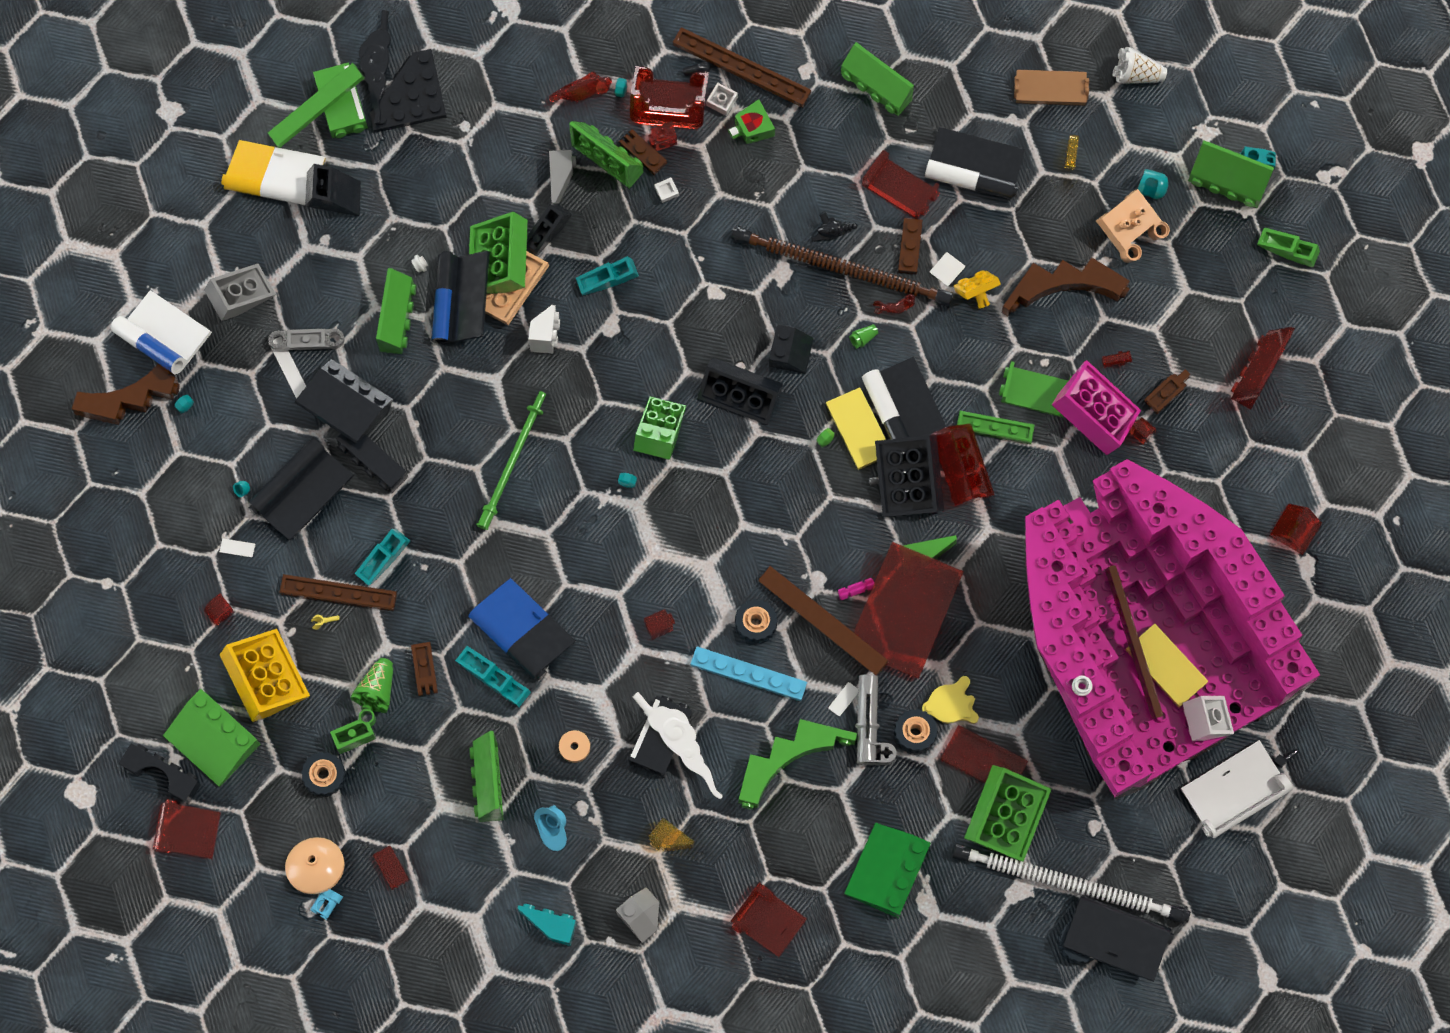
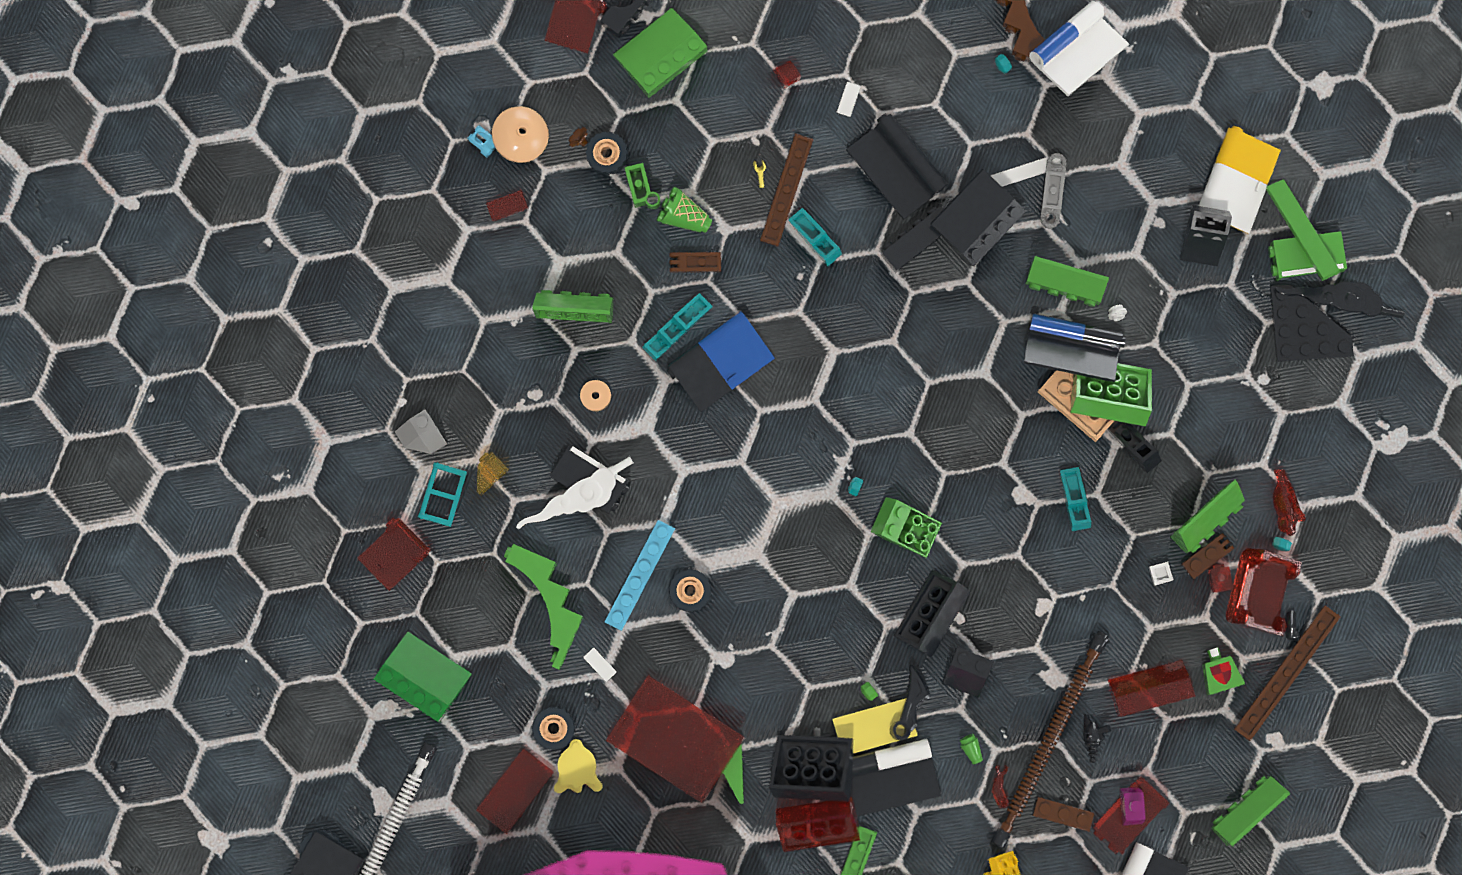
camera: 100 degrees right, 10 degrees up
(238, 291) = (1114, 131): light grey slope -> none
(241, 488) = (906, 109): teal hinge -> none
(264, 674) = (714, 109): yellow slope -> none
(310, 805) = (578, 137): none -> reddish brown plant
(490, 510) = (847, 348): bright green bar -> none
(543, 331) = (1022, 425): white slope -> none
(551, 827) = (519, 361): medium azure piece -> none
(554, 927) = (422, 349): teal slope -> none
(560, 172) = (1195, 468): light grey slope -> none
(659, 624) = (702, 495): clear red brick -> none
(700, 868) = (436, 466): none -> teal window
(722, 99) = (1254, 646): white piece -> none
(777, 183) = (1151, 688): none -> clear red slope
(822, 393) = (916, 696): none -> black piece
(823, 620) = (679, 656): reddish brown tile -> none
(856, 589) = (708, 695): dark pink axle -> none
(867, 746) = (545, 677): light grey piece -> none
(891, 182) = (1132, 806): none -> magenta torso
(947, 269) = (1033, 848): white sticker -> none
(1007, 813) = (456, 803): bright green slope -> none

